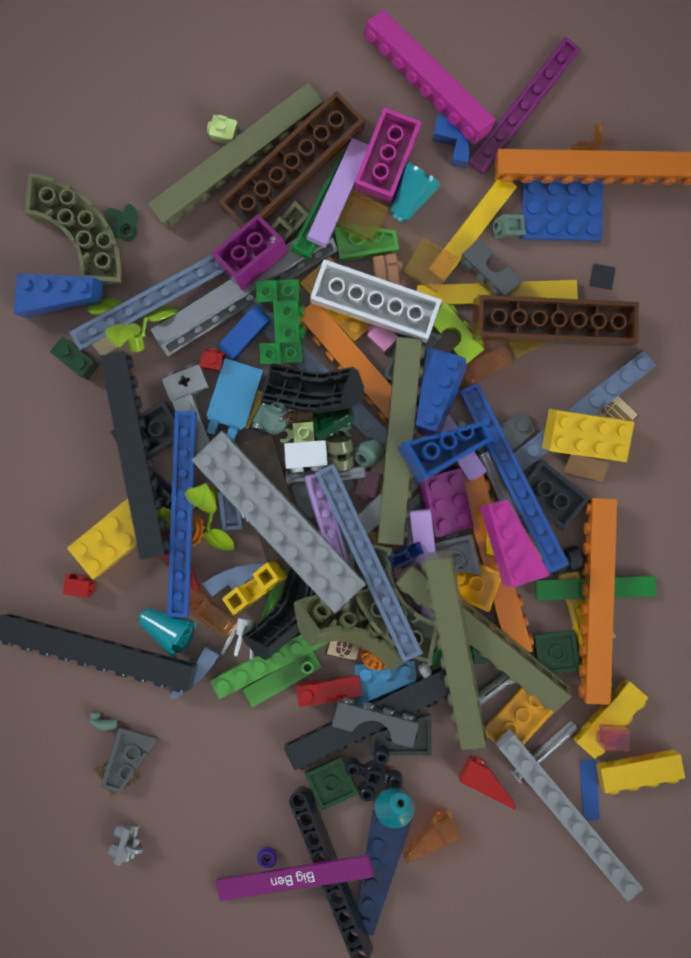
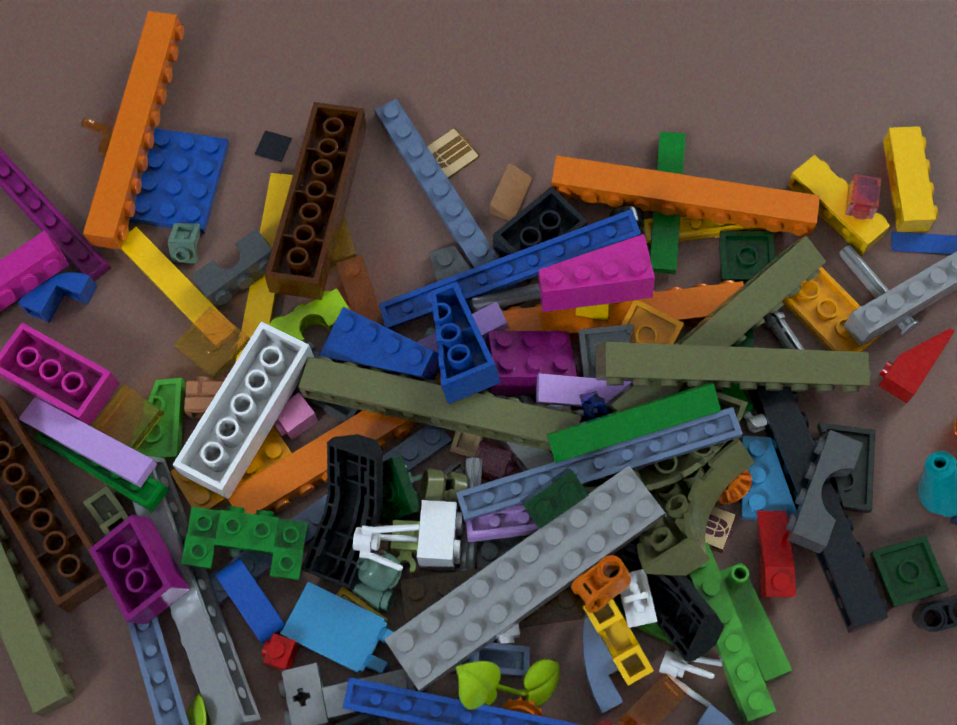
camera: 80 degrees left, 20 degrees down
(279, 570) = (600, 584): none -> orange piece
(280, 598) = (638, 601): none -> white hips
(291, 408) = (368, 539): none -> white plant
(335, 534) = (554, 497): none -> dark green brick
(368, 452) = (448, 451): sand green head -> none
(373, 773) = (897, 509): black gear -> none
(400, 584) = (633, 422): none -> green tile
(412, 192) = (110, 348): teal cone -> none
(587, 435) = (469, 181): yellow brick -> none

